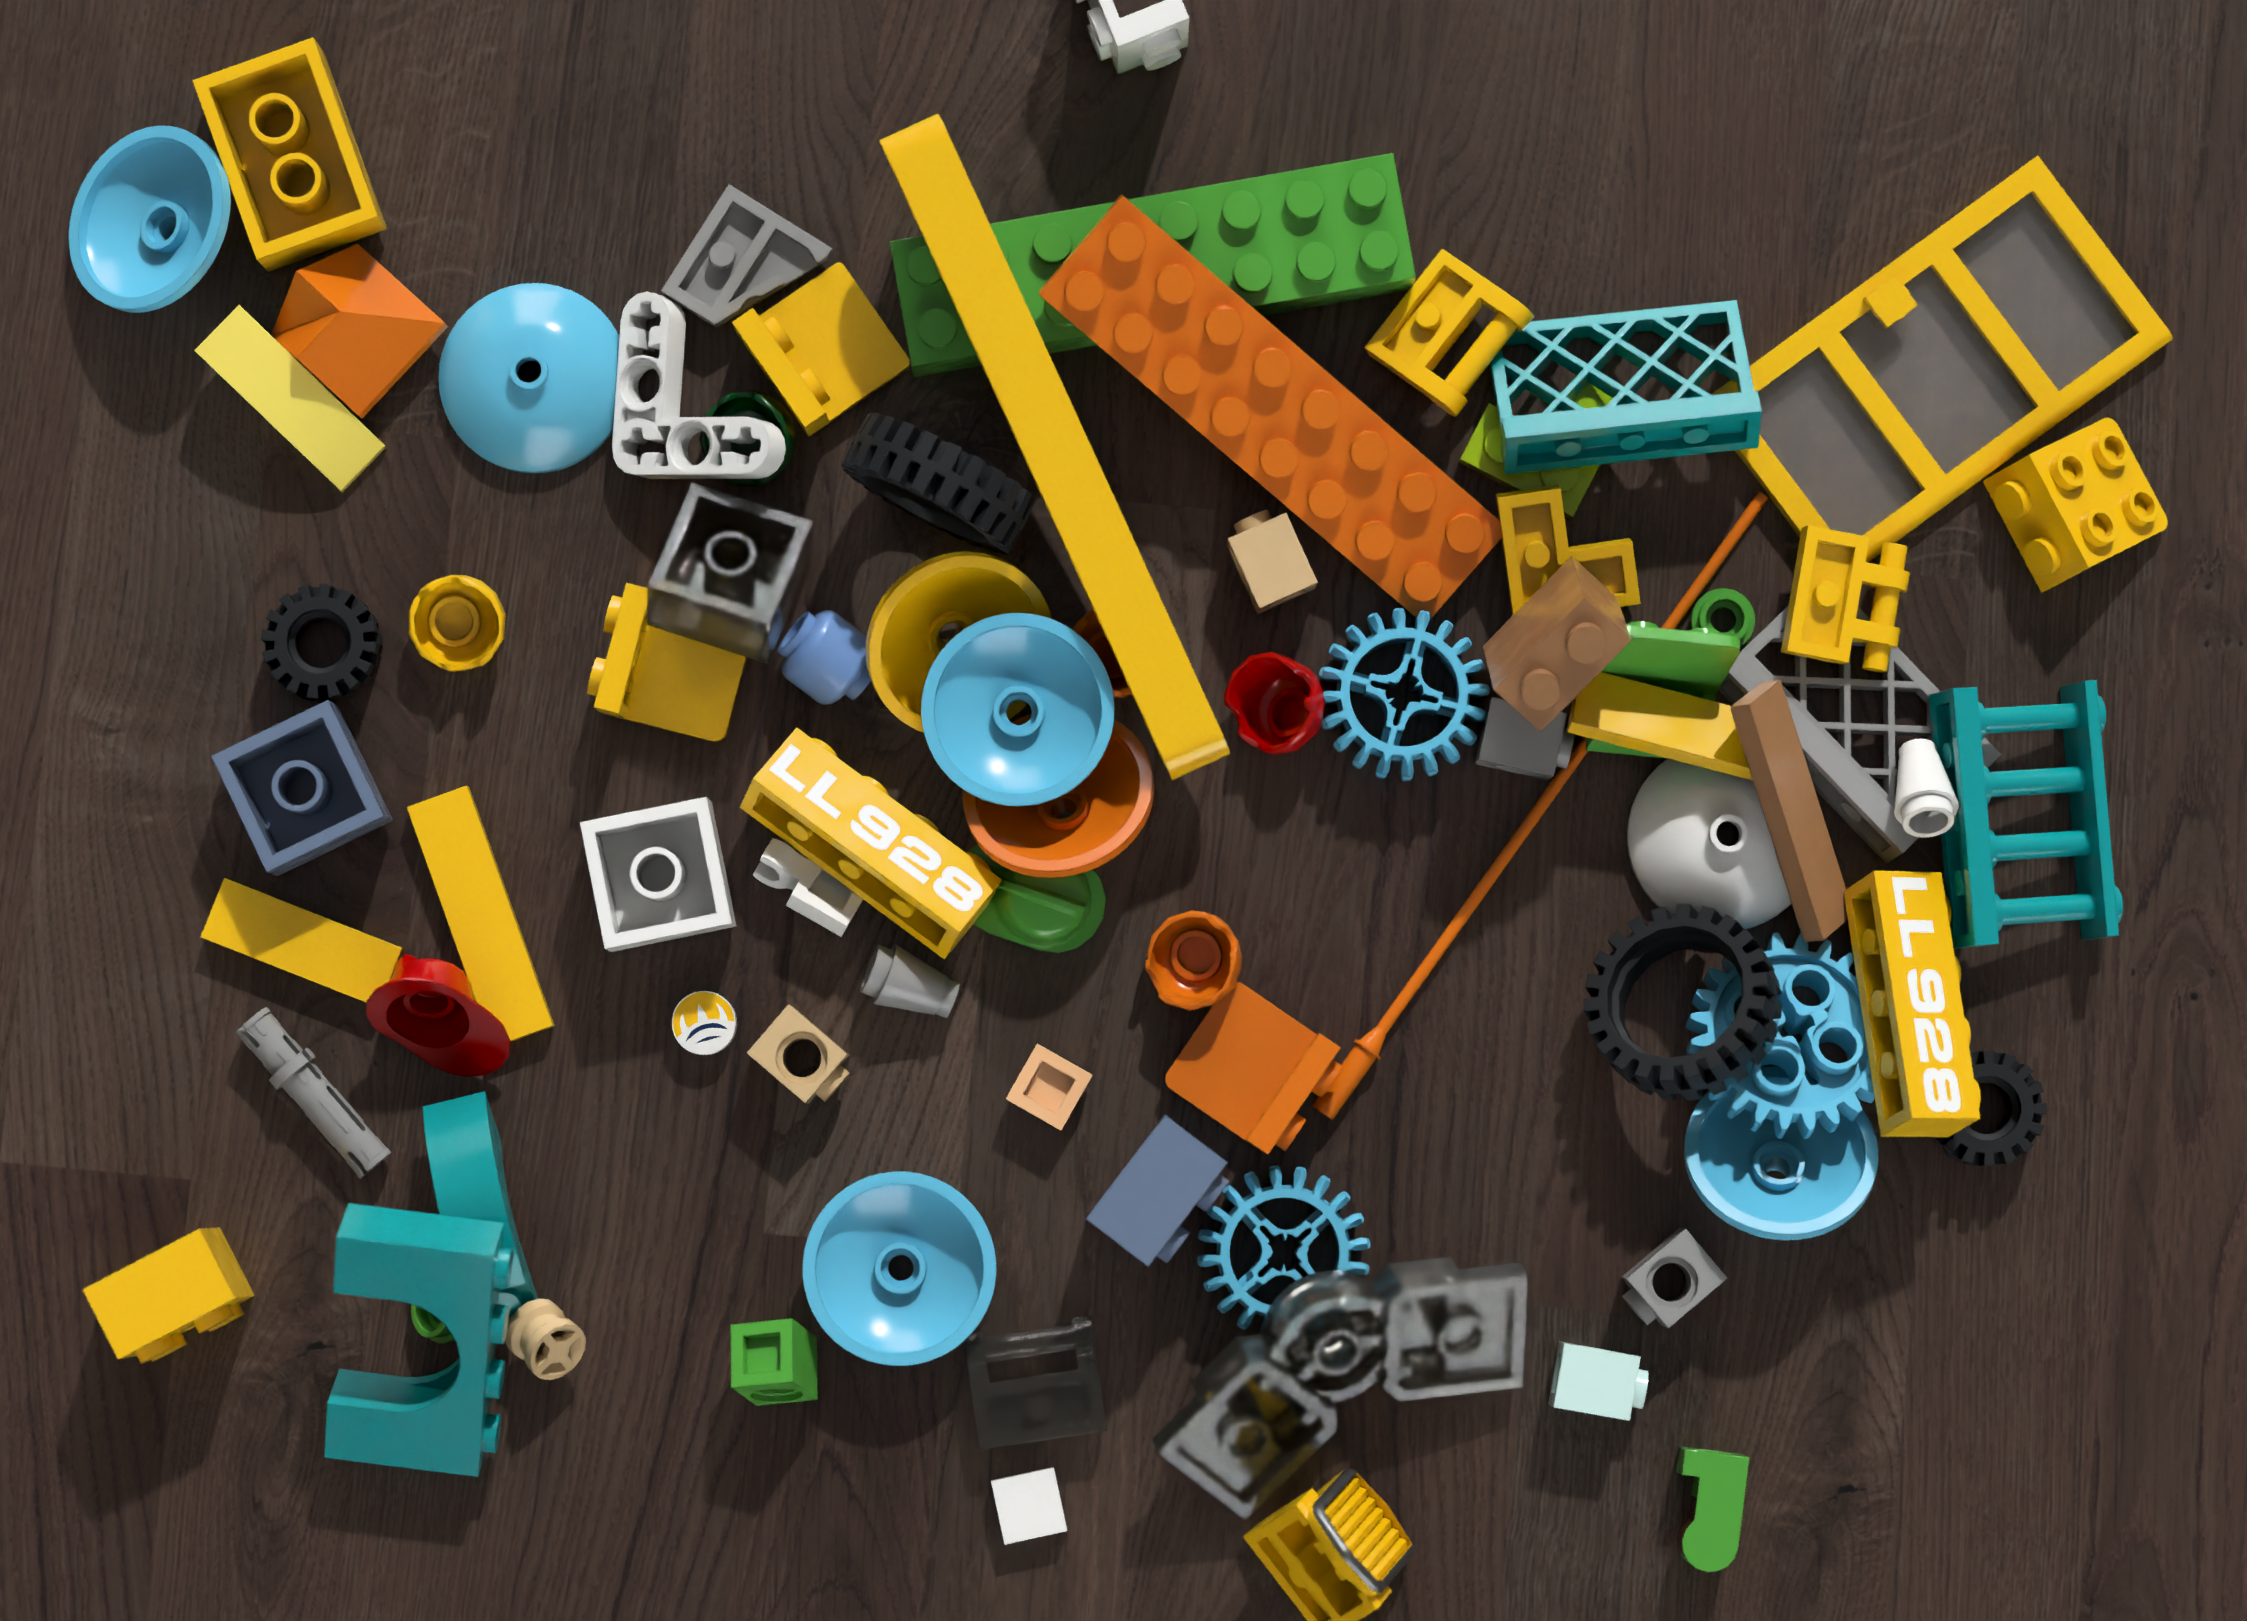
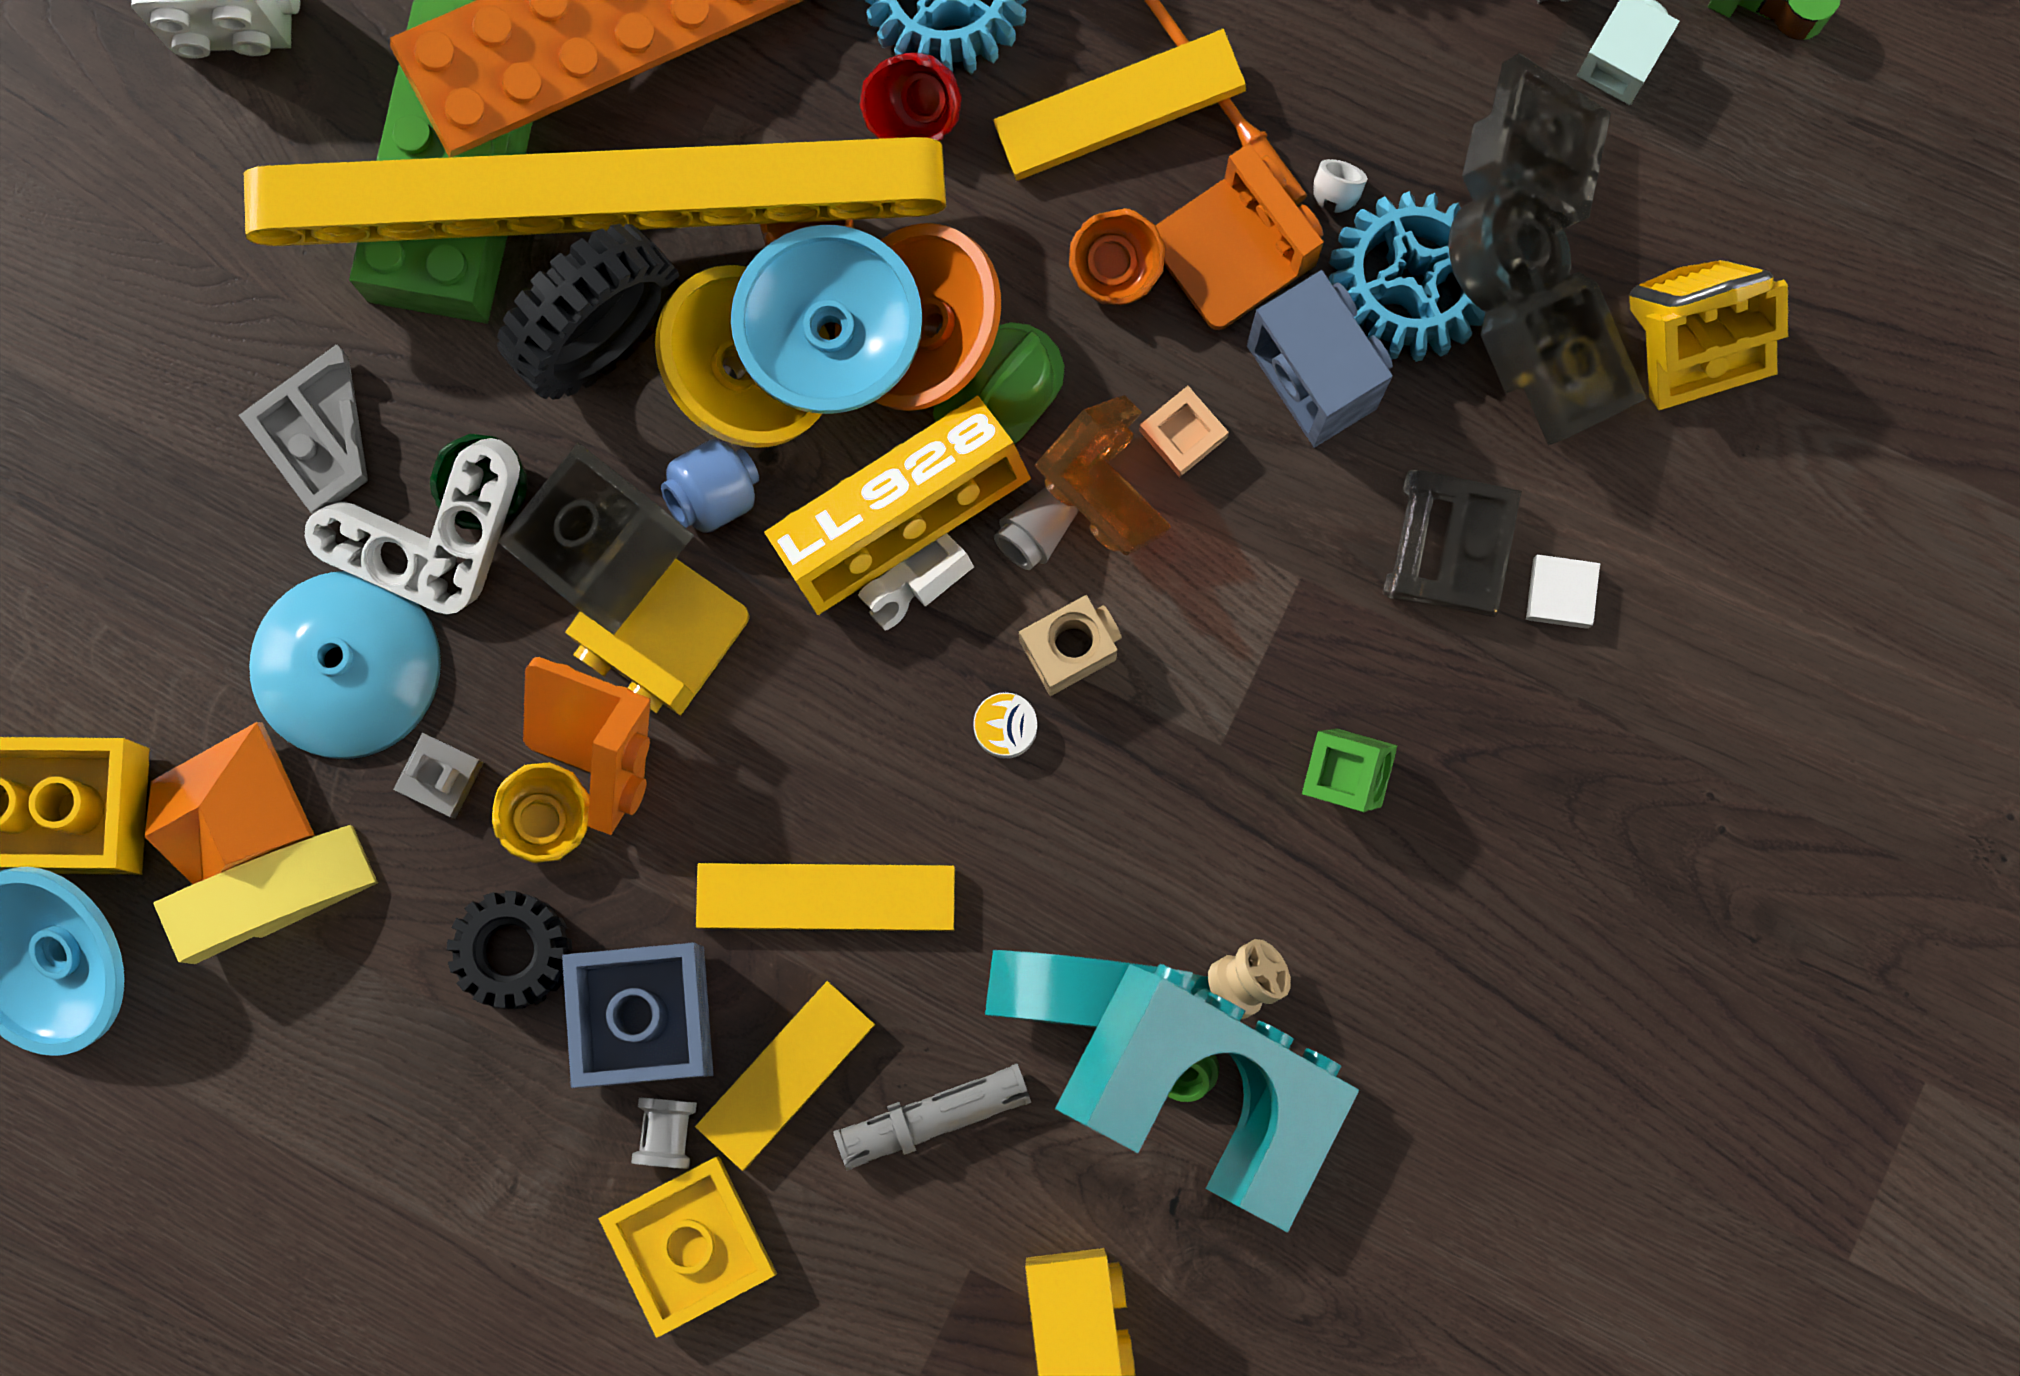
camera: 60 degrees left, 5 degrees down
(114, 914) = (687, 1246): none -> yellow plate
(207, 852) = (664, 1133): none -> light grey bush
(435, 1016) = (907, 968): red piece -> none
(460, 509) = (438, 776): none -> light grey tile
(552, 642) = (592, 729): none -> orange bracket
(658, 874) = (850, 709): white brick -> none
(823, 348) = (424, 389): yellow bracket -> none
(851, 1279) = (1315, 578): medium azure dish -> none
(955, 1029) = (1084, 479): none -> clear orange bracket
(1270, 560) = (780, 63): tan brick -> none
(1353, 905) = (1120, 104): none -> yellow tile
(1365, 1148) = (1338, 183): none -> white hinge

